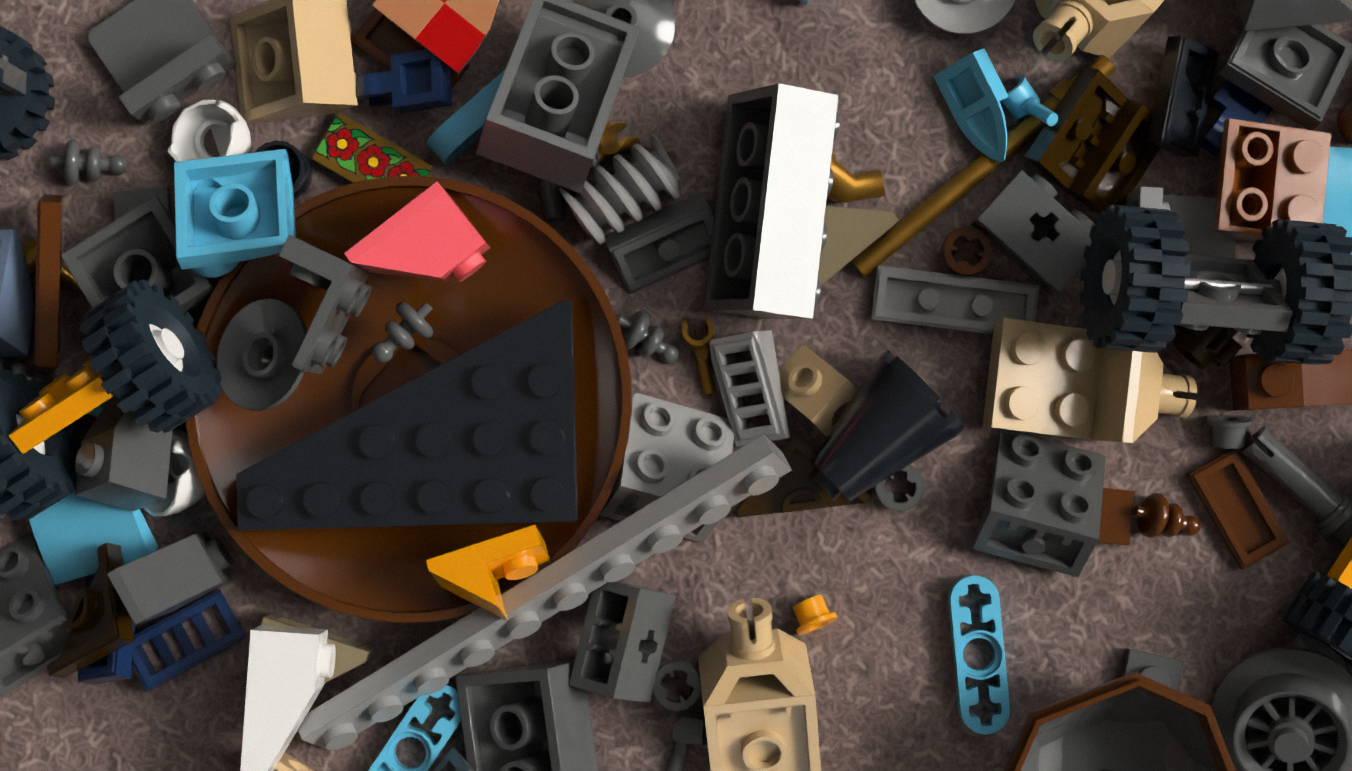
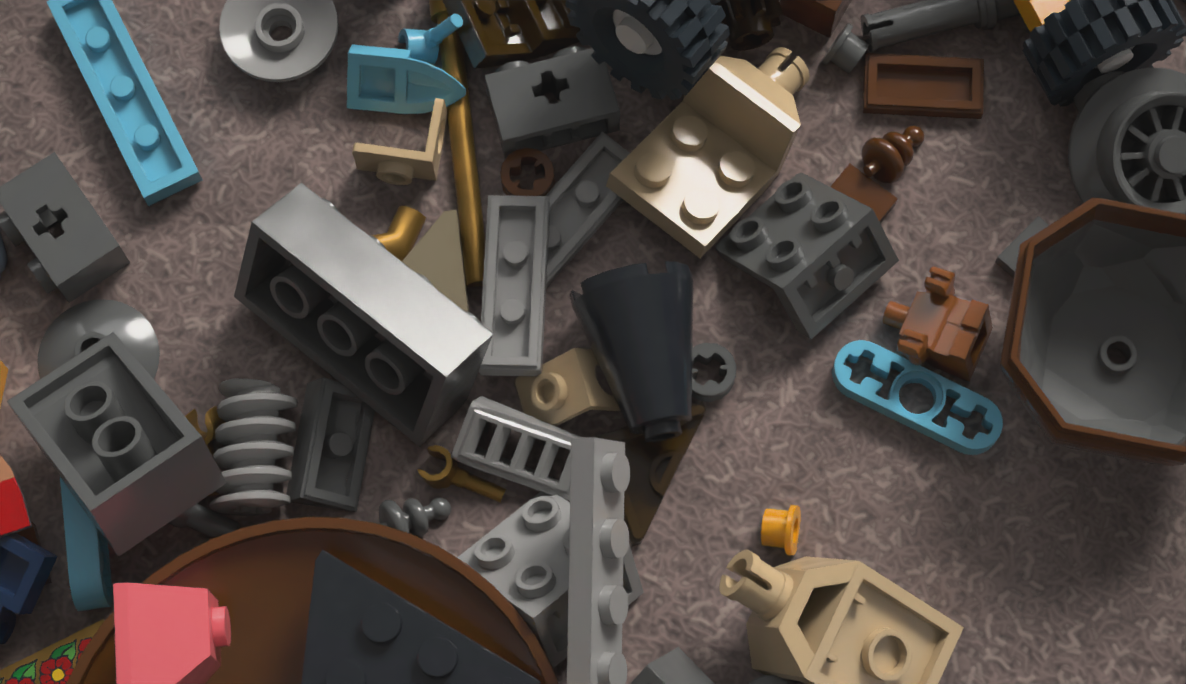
camera: 55 degrees left, 15 degrees down
(873, 299) = (515, 284): none -> light grey tile
(911, 152) = (401, 165): none -> tan bracket
(1043, 640) = (941, 327): none -> dark orange piece

